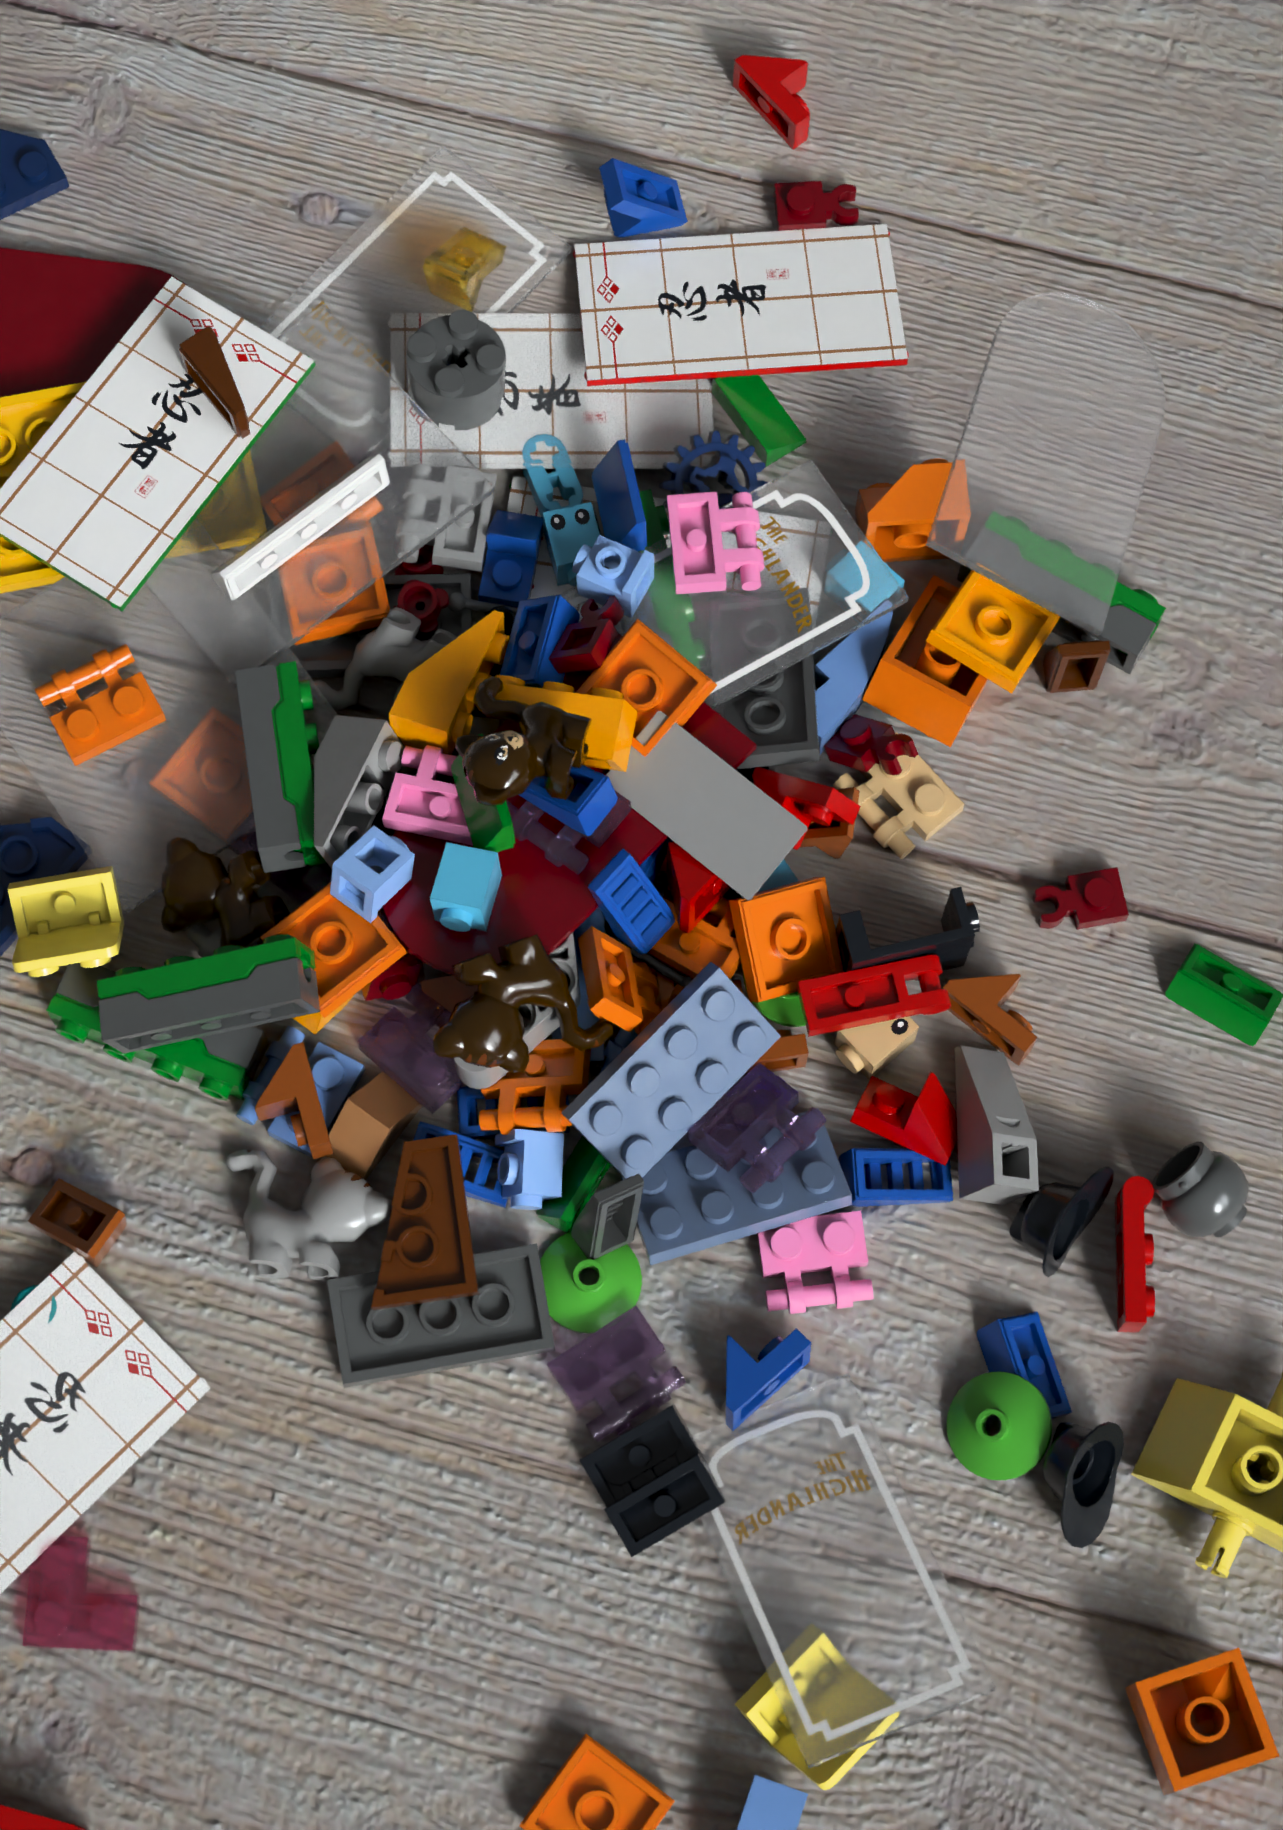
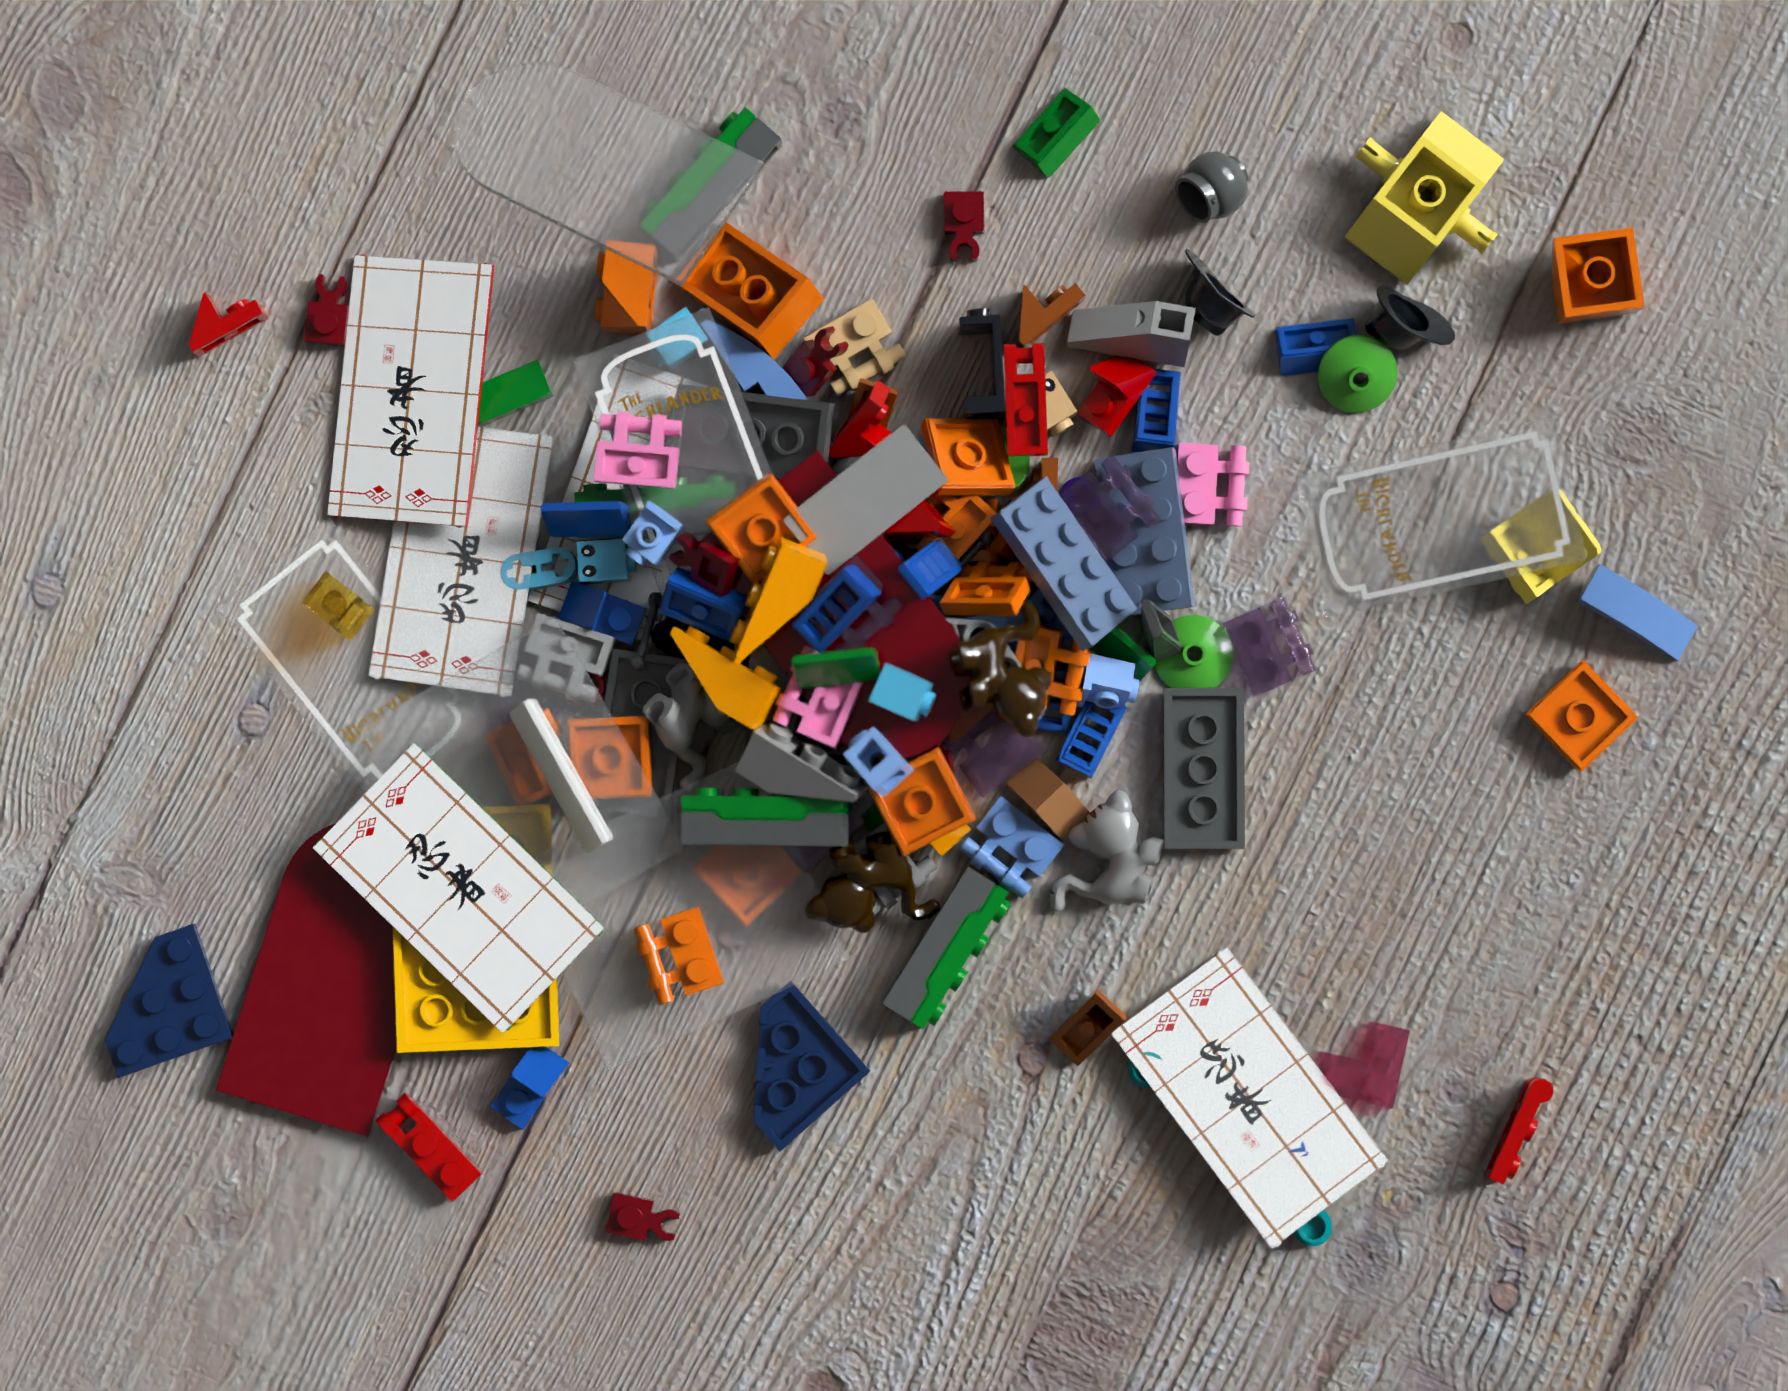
camera: 80 degrees left, 15 degrees up
(66, 921) = (861, 1004): light yellow bracket -> none
(208, 994) = (946, 901): dark grey piece -> none
(210, 372) = (415, 826): reddish brown slope -> none
(293, 1091) = (1018, 847): dark orange slope -> none
(421, 592) = (627, 694): dark red plate -> none
(429, 1230) = (1144, 765): reddish brown wing -> none
(456, 370) = (423, 620): dark grey brick -> none
(509, 760) = (827, 644): dark brown animal -> none
(640, 199) = (301, 451): blue slope -> none
(653, 1480) = (1353, 633): black slope -> none
(722, 463) = (558, 443): dark blue gear -> none
(753, 1383) = (1295, 552): blue slope -> none
(992, 630) = (746, 249): light orange plate -> none
(1075, 665) = (773, 188): reddish brown slope -> none
(1133, 1252) = (1247, 247): red plate -> none

